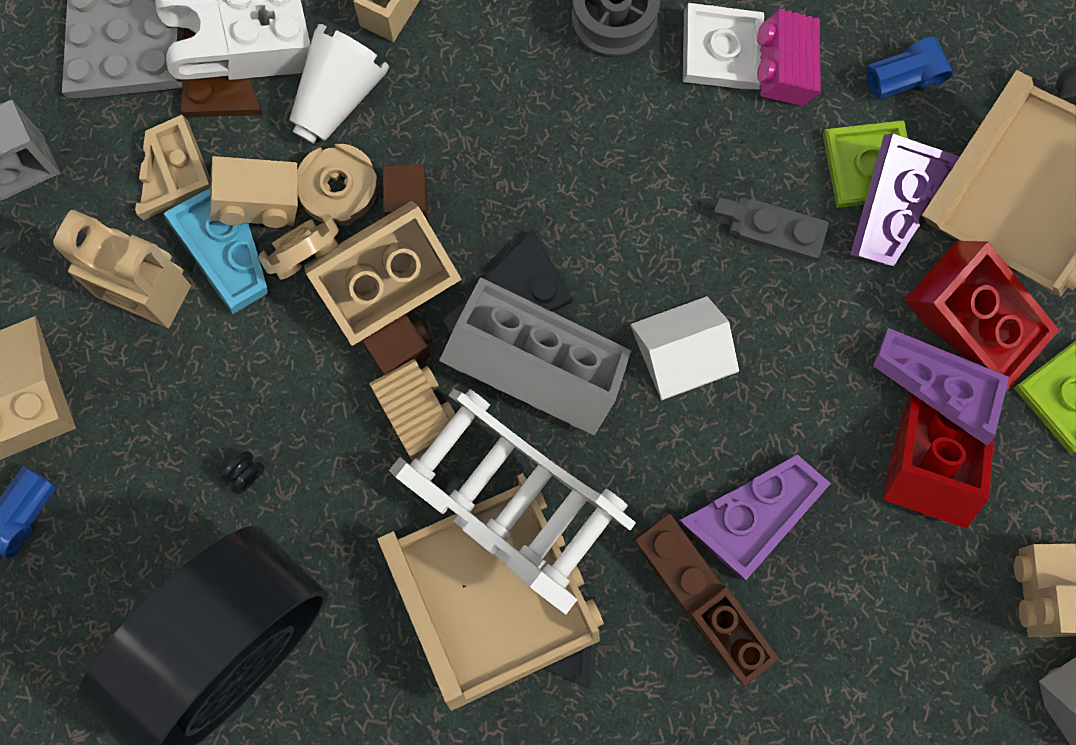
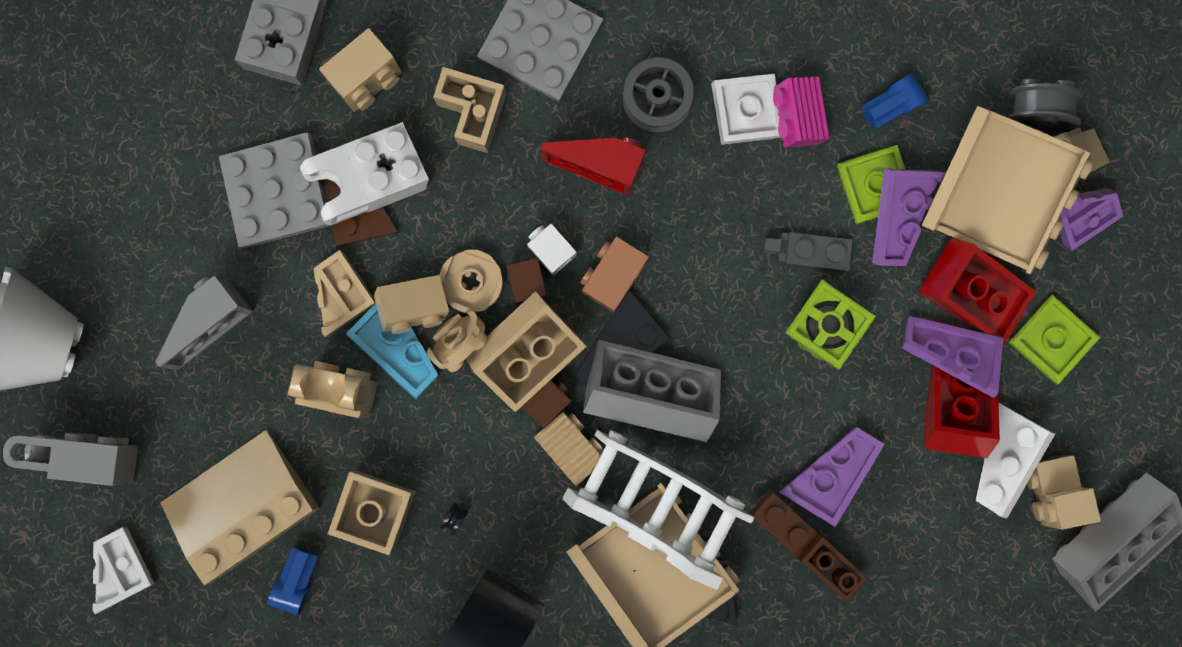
camera: 10 degrees left, 10 degrees up
(136, 439) = (371, 512): none -> tan brick
(332, 83) = (450, 203): white cone -> none
(445, 162) = (551, 248): none -> white brick
(518, 205) = (614, 273): none -> nougat brick
(524, 62) = (603, 161): none -> red slope
(686, 347) = (760, 358): white slope -> none
(781, 316) = (829, 325): none -> lime piece
(999, 538) = (1011, 461): none -> white wing

